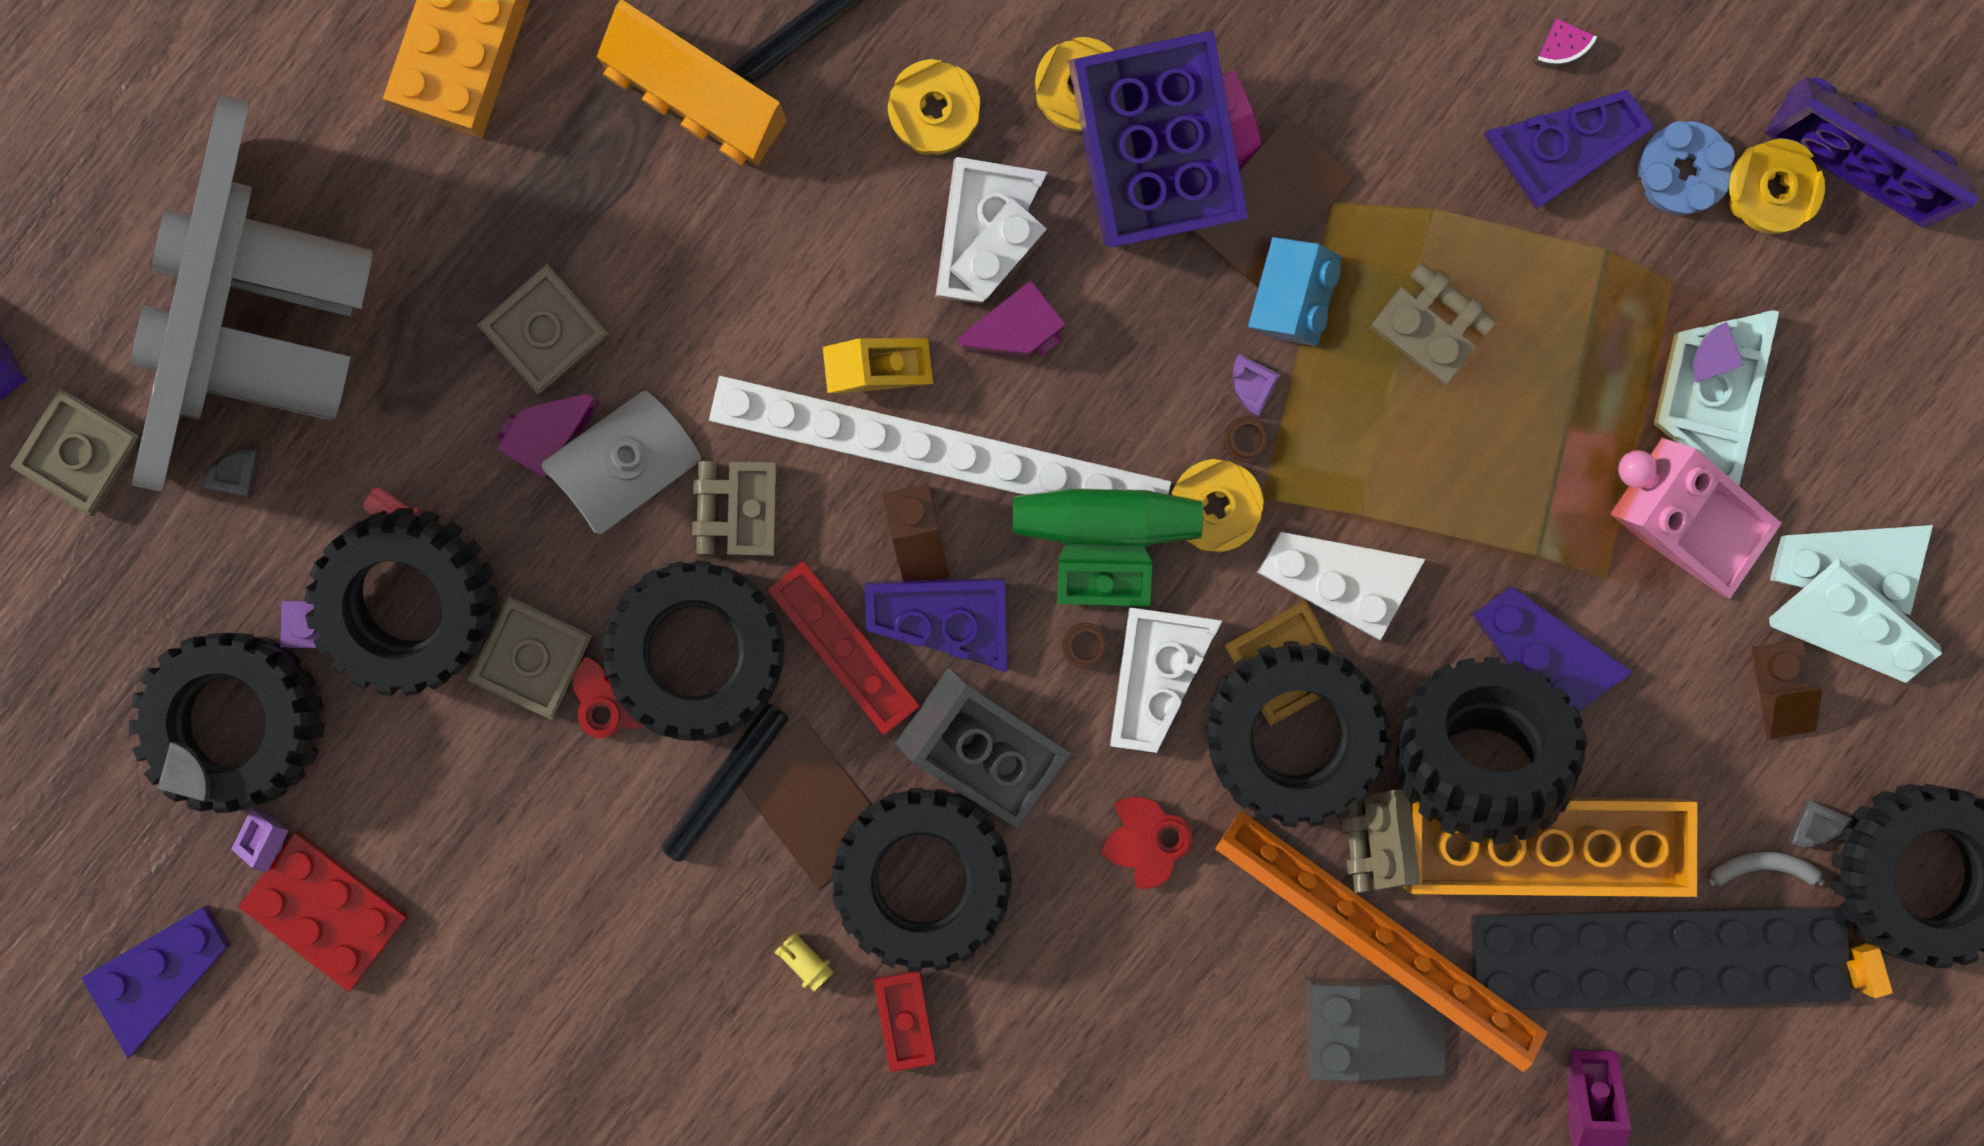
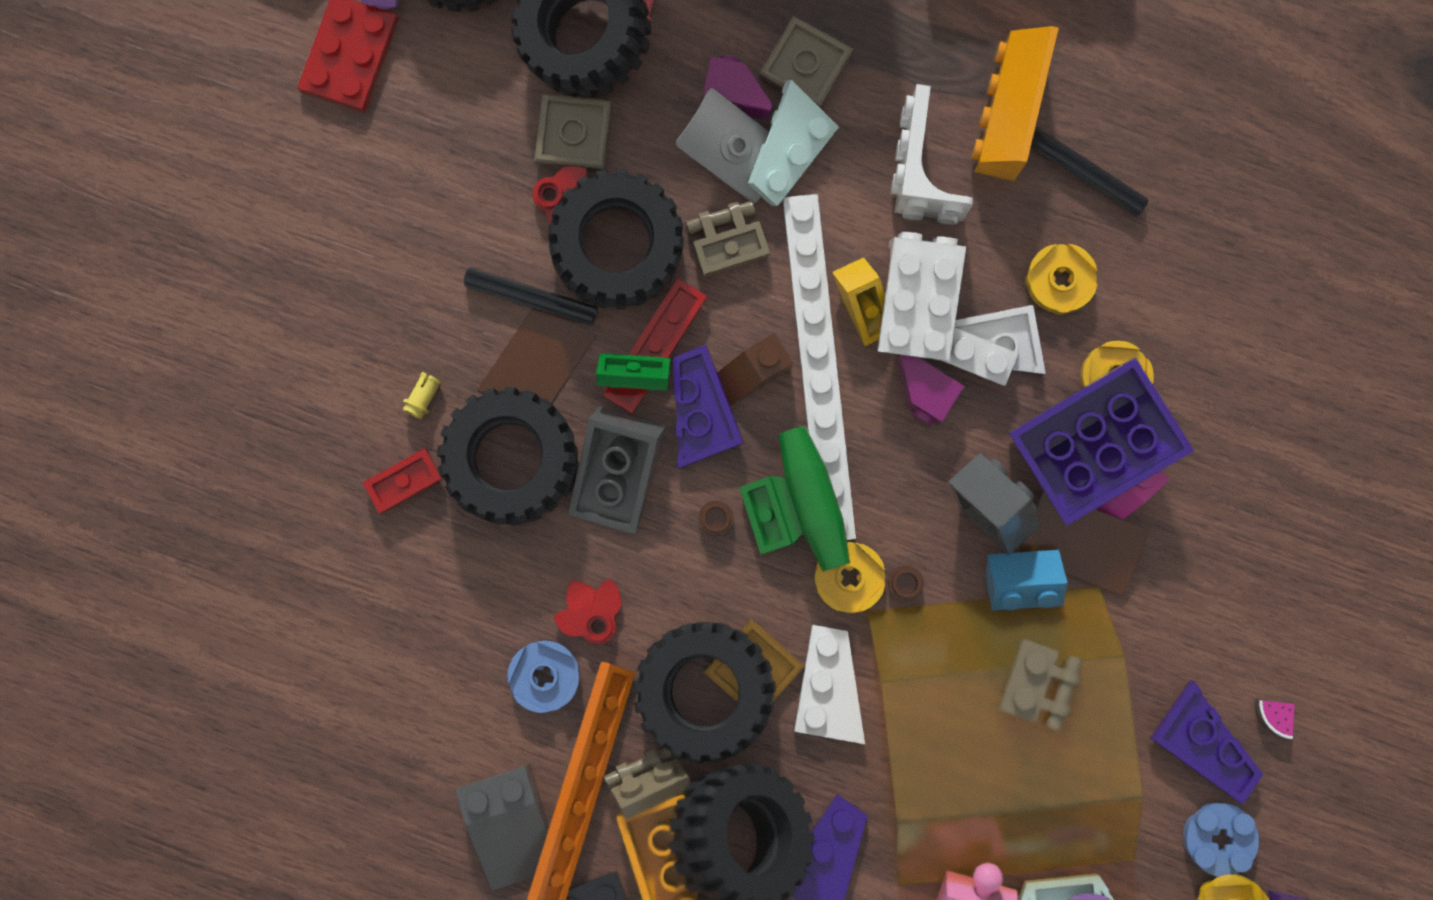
camera: 70 degrees right, 5 degrees down
(645, 385) = (793, 142): none -> light aqua wing
(759, 255) = (914, 192): none -> white bracket
(869, 687) = (633, 371): none -> green plate
(900, 293) = (921, 296): none -> white bracket
(1155, 672) = (713, 575): white wing -> none
(1189, 296) = (995, 502): none -> dark grey brick
(1209, 951) = (525, 685): none -> medium blue plate
(1252, 384) = (947, 574): medium lavender tile -> none

